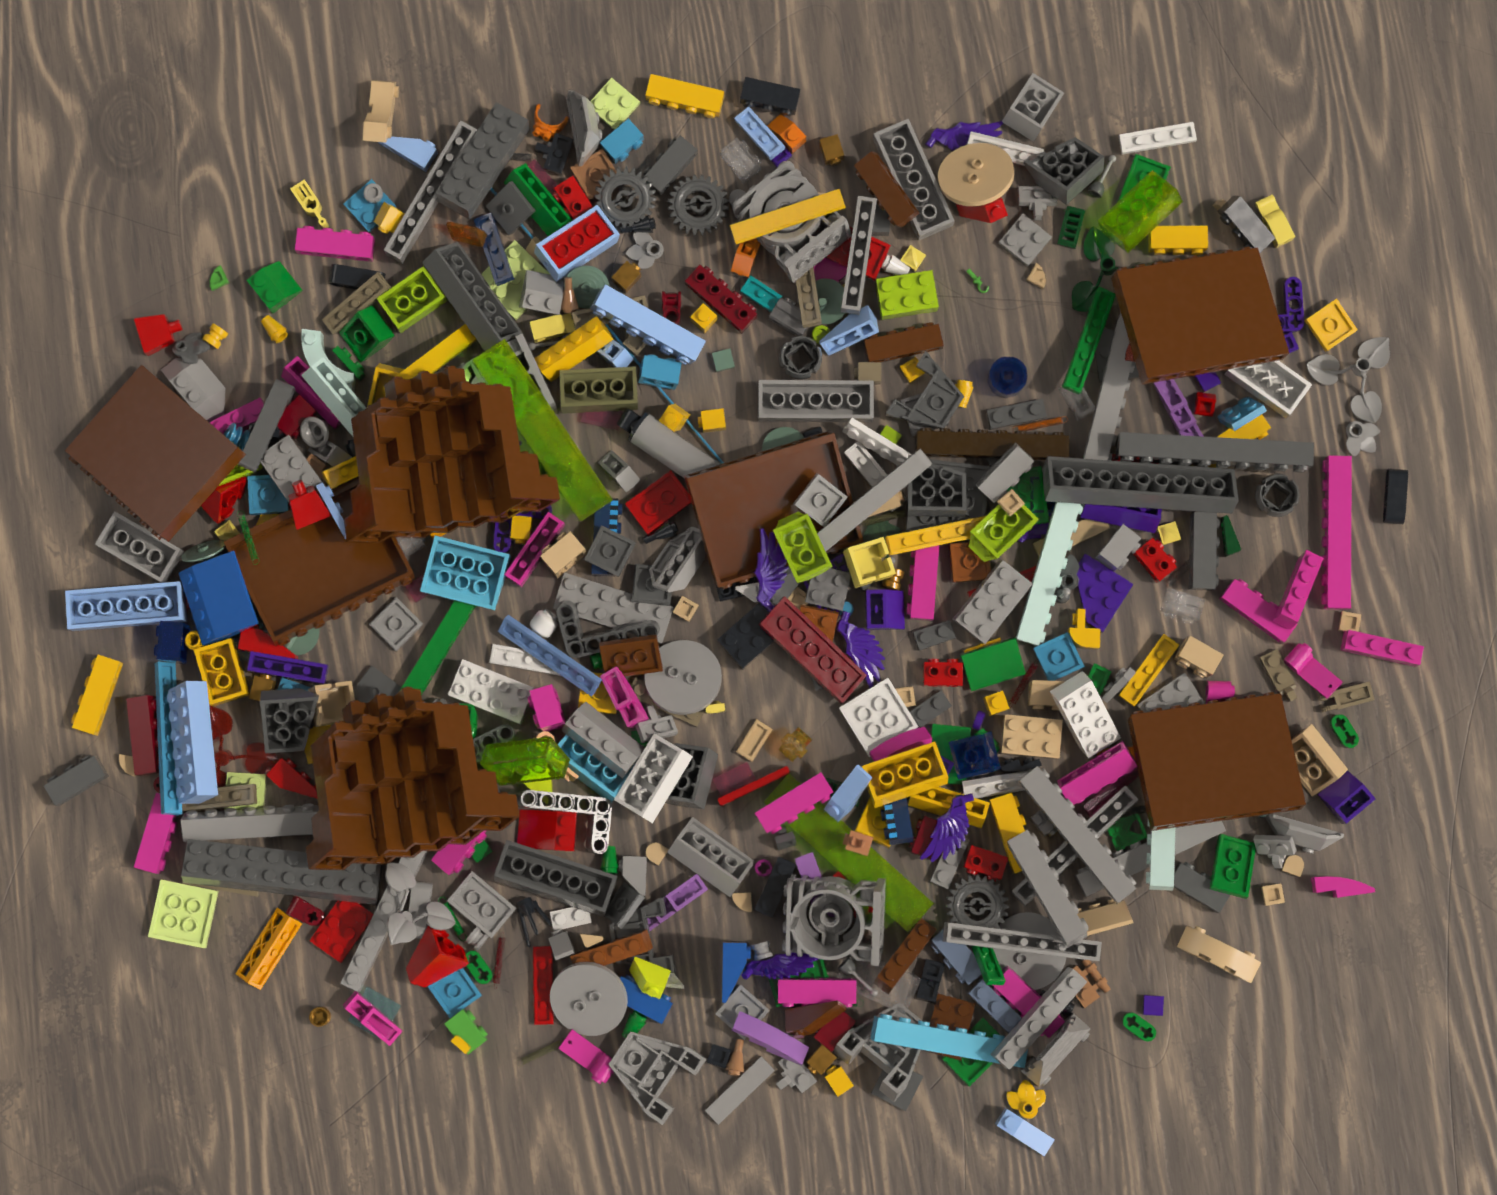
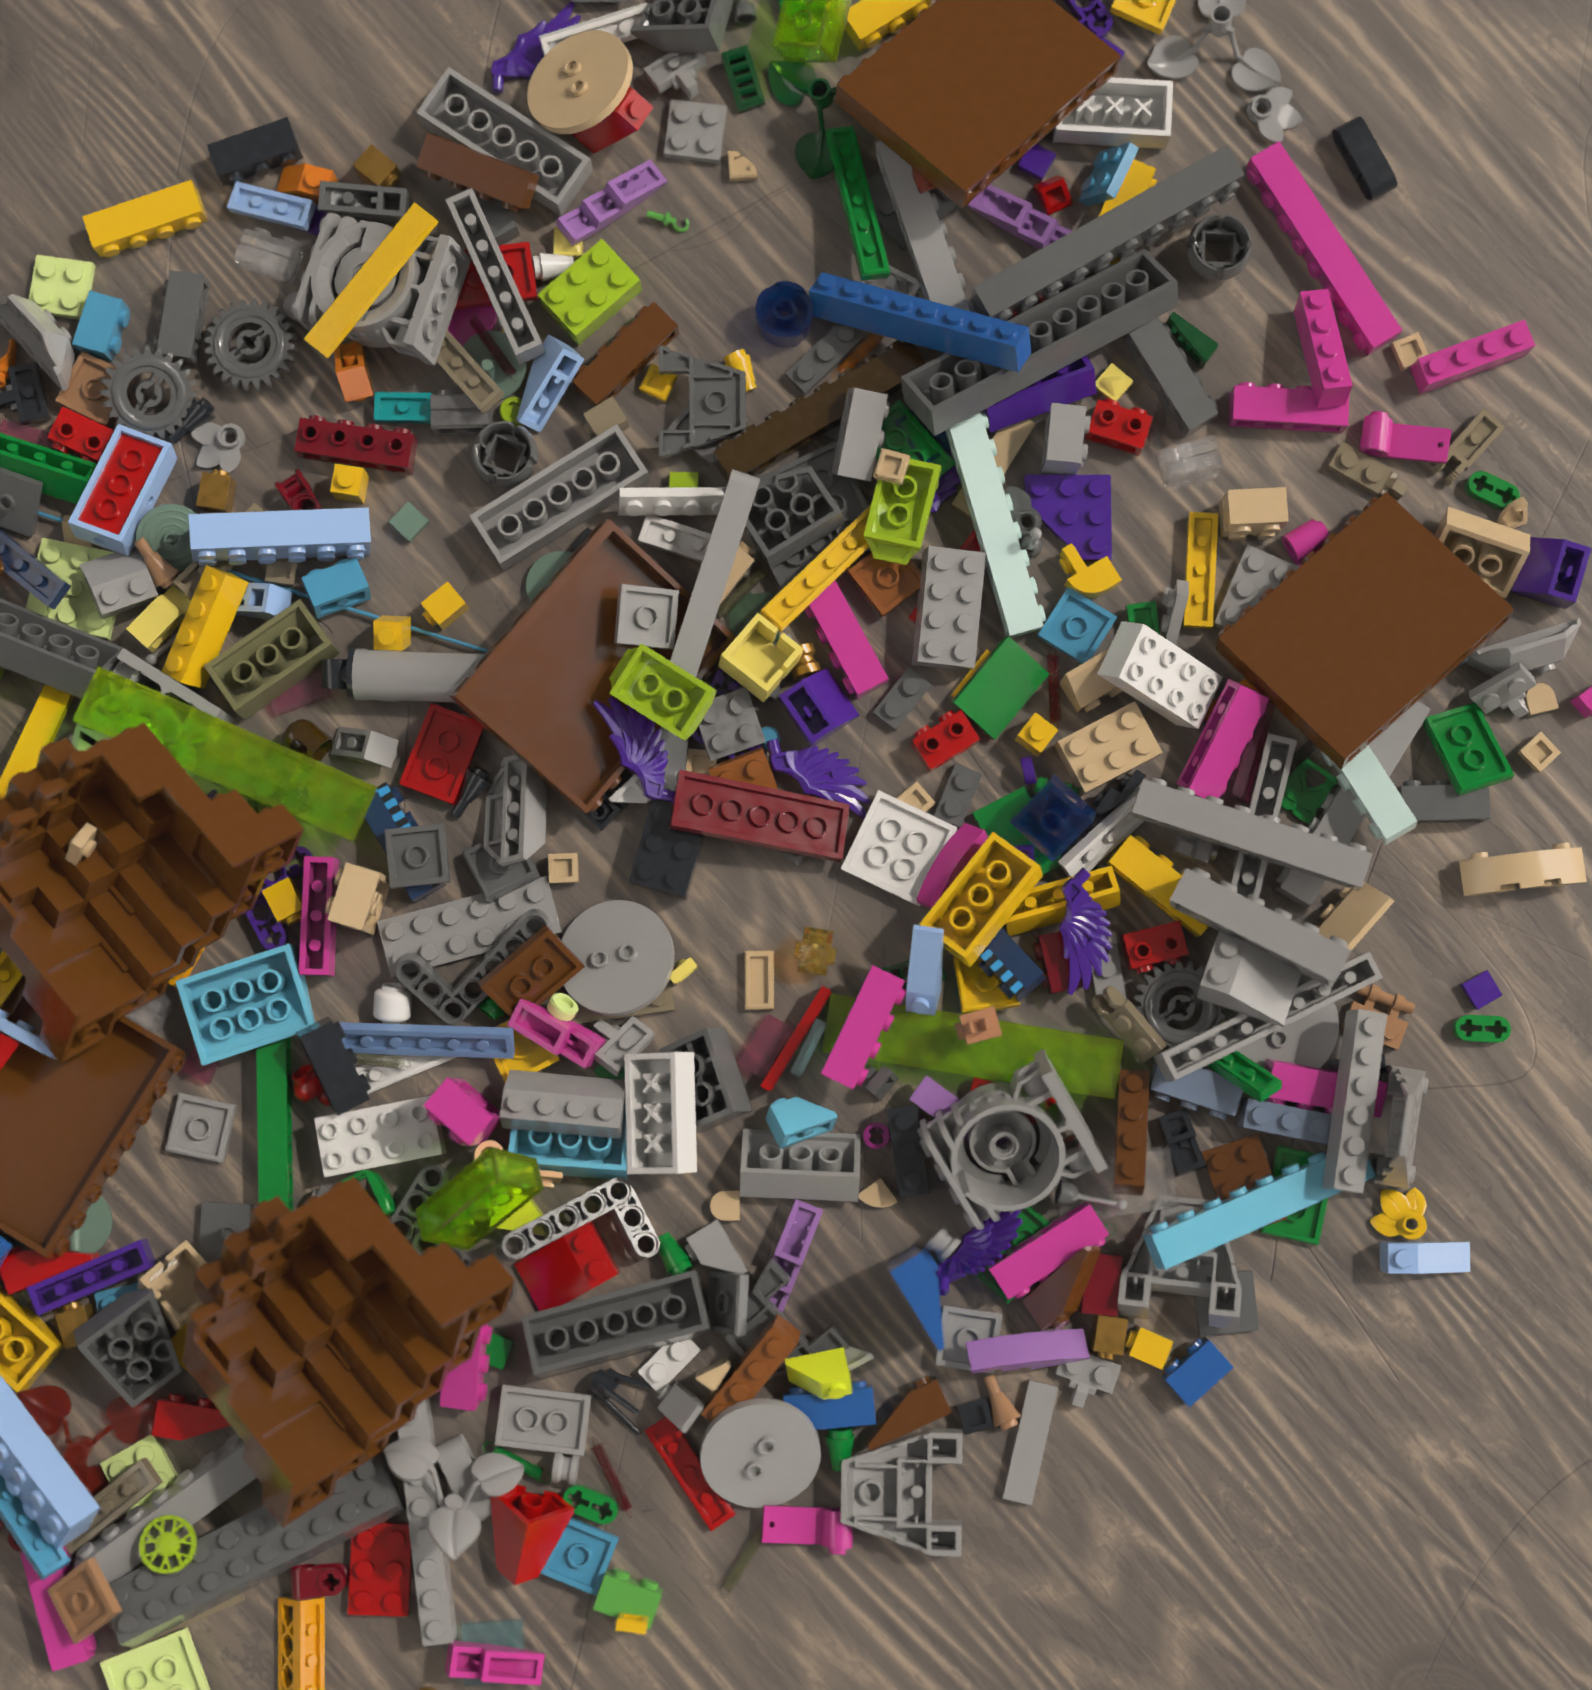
camera: 30 degrees left, 0 degrees up
(176, 840) = (84, 1600): none -> medium nougat plate
(239, 838) = (167, 1544): none -> lime wheel
(435, 431) = (82, 844): none -> tan plate
(472, 639) = (307, 1085): none -> red animal
(492, 637) = (334, 1065): none -> black brick
(513, 644) = (381, 1061): none -> olive piece
(594, 449) = (315, 740): none -> dark brown helmet
(636, 685) = (562, 1007): none -> yellowish green tile
(689, 1031) = (914, 1410): none -> reddish brown slope
(725, 831) = (798, 1120): none -> medium azure slope
(757, 795) = (808, 1048): none -> clear light blue tile
(812, 165) = (364, 202): none -> dark grey slope
(832, 298) = (480, 334): none -> dark red piece
(856, 1111) = (1196, 1371): none -> blue brick
(942, 895) = (1128, 1023): none -> dark tan hinge
(951, 251) = (612, 202): none -> medium lavender slope
(1022, 914) = (1248, 980): none -> light grey slope
(1078, 431) = (921, 322): none -> blue brick
(1347, 752) = (1514, 514): none -> tan tile

